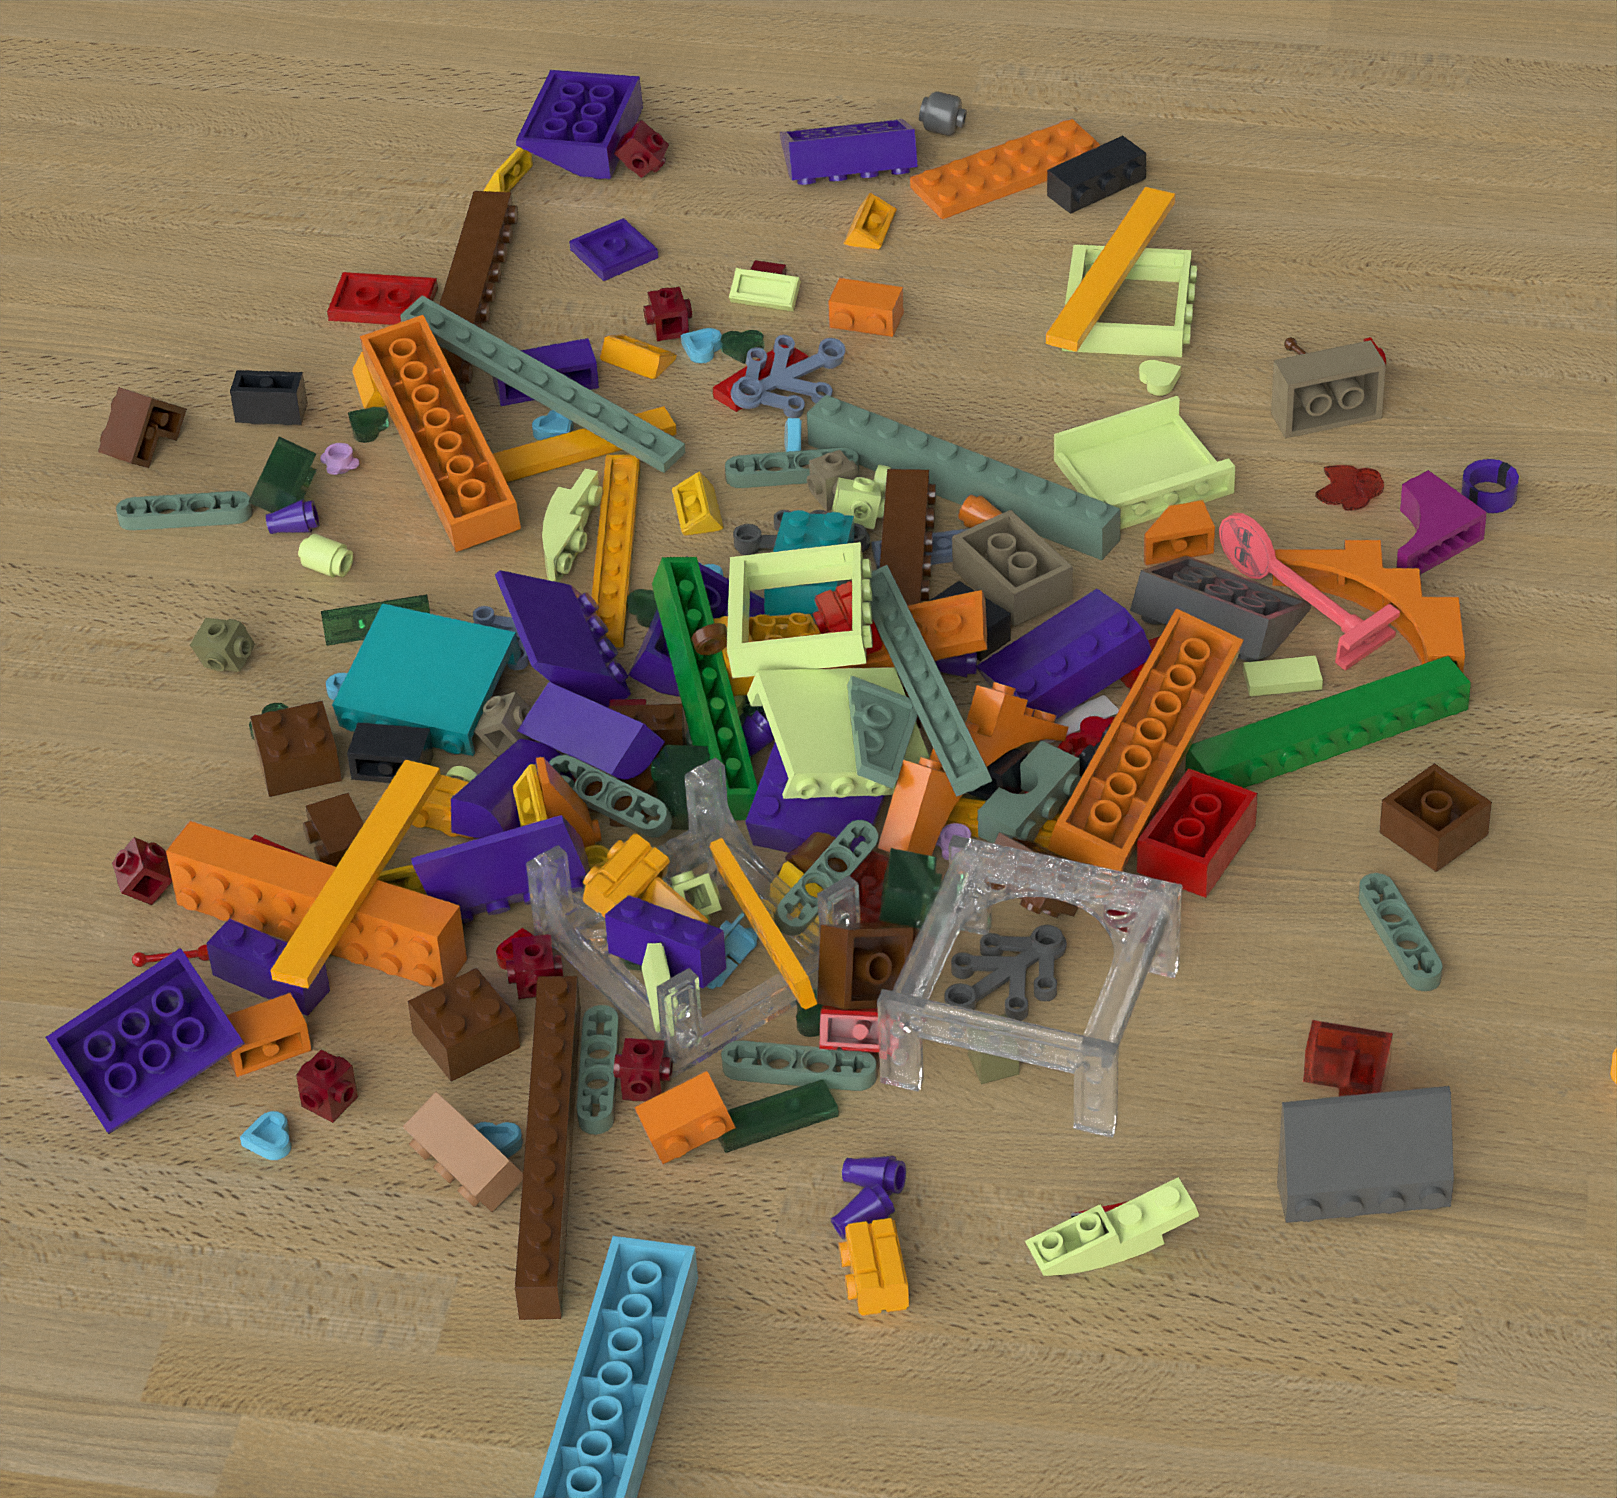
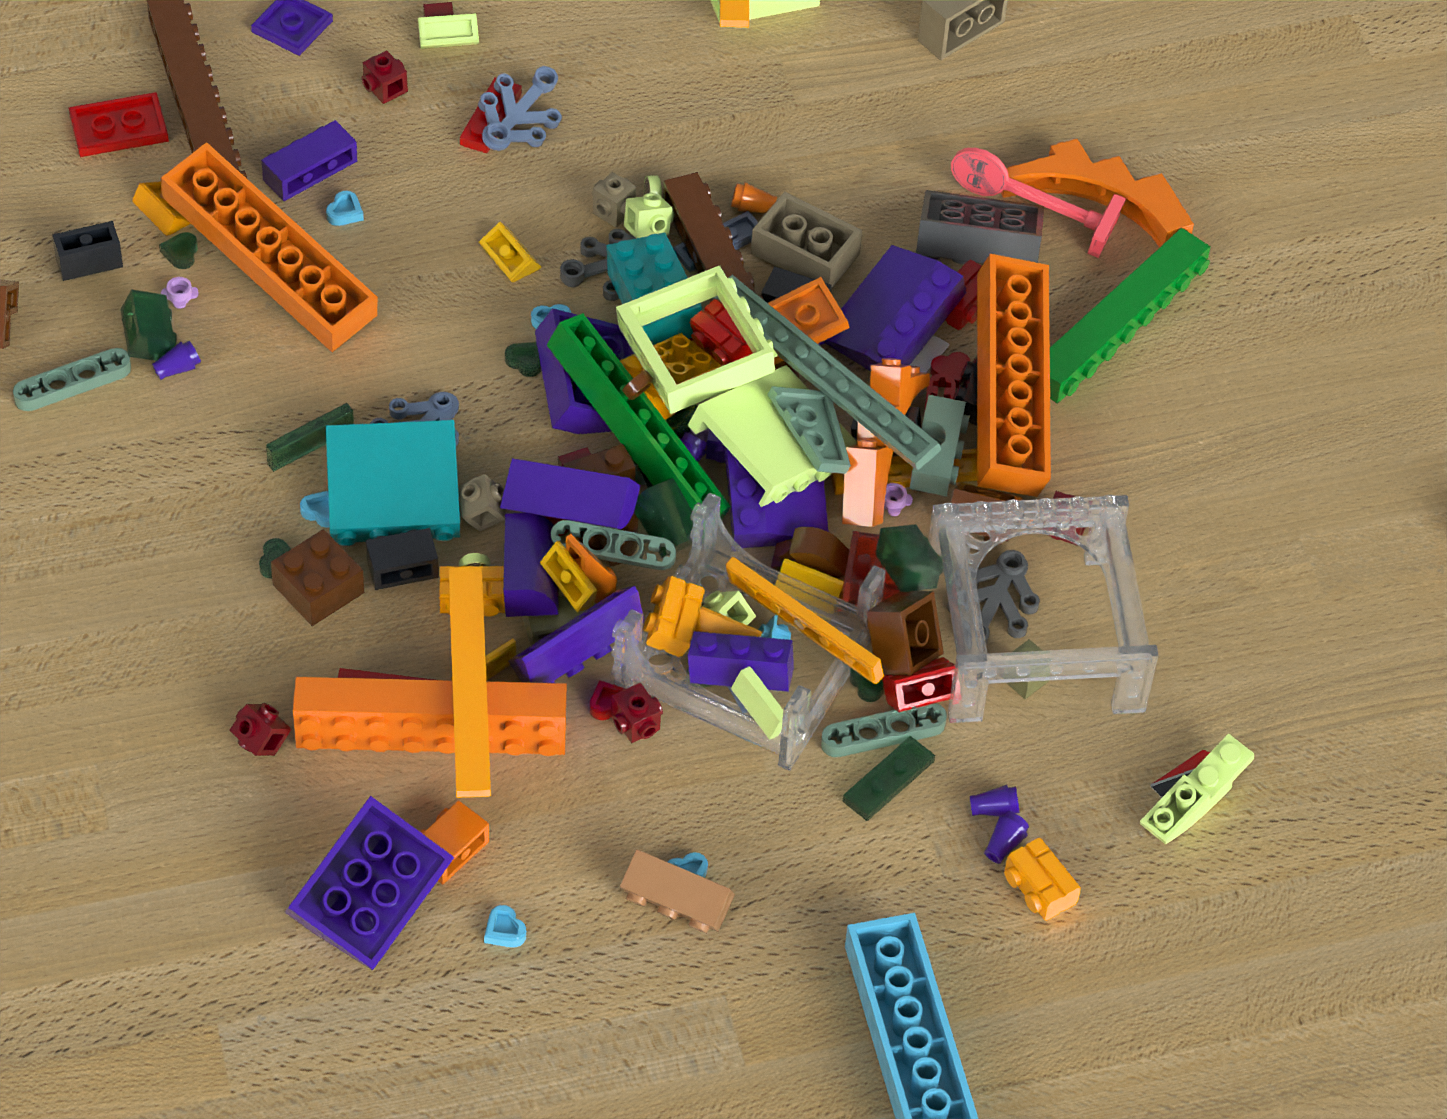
camera: 30 degrees left, 10 degrees up
(140, 959) = (348, 784): red hinge -> none
(222, 644) = (196, 499): olive brick -> none
(246, 960) = (412, 781): dark purple brick -> none
(325, 556) = (227, 389): yellowish green brick -> none
(326, 1085) = (531, 869): dark red brick -> none
(332, 827) = (403, 645): reddish brown brick -> none
(464, 1024) = (608, 781): reddish brown brick -> none
(548, 386) = (330, 176): sand green plate -> none
(548, 1150) = (739, 864): reddish brown brick -> none
(564, 636) = (496, 411): dark purple slope -> none
(565, 521) = (417, 305): yellowish green slope -> none
(568, 448) = (386, 215): light orange tile -> none
(597, 1069) = (735, 782): sand green beam -> none
(615, 543) = (466, 314): light orange tile -> none
(636, 355) = (374, 122): light orange slope -> none
(643, 1069) = (773, 773): dark red brick -> none
(684, 1117) = (832, 805): orange brick -> none
(701, 344) = (422, 97): medium azure tile -> none
(737, 343) = (457, 89): clear green tile -> none
(741, 469) = (563, 190): sand green beam -> none
(792, 435) = (555, 168): medium azure tile -> none
(825, 876) = (831, 565): sand green beam -> none
(866, 307) = (544, 26): orange brick -> none
(959, 472) = (720, 166): sand green brick -> none
(1142, 462) = (848, 118): yellowish green panel -> none
(1159, 376) = (814, 29): yellowish green tile -> none
(1180, 532) = (917, 171): orange slope -> none
(1197, 832) = (1080, 436): red brick -> none
(1282, 675) = (1067, 274): yellowish green tile -> none
(1347, 1058) = (1298, 596): clear red brick -> none
(1350, 486) = (1018, 93): clear red plate -> none
(1366, 1154) = (1353, 673): dark grey slope -> none
(1406, 929) = (1266, 470): sand green beam -> none
(1435, 817) = (1243, 370): reddish brown brick -> none
(1442, 520) = (1105, 105): magenta arch -> none
(1495, 472) = (1124, 50): dark purple piece -> none

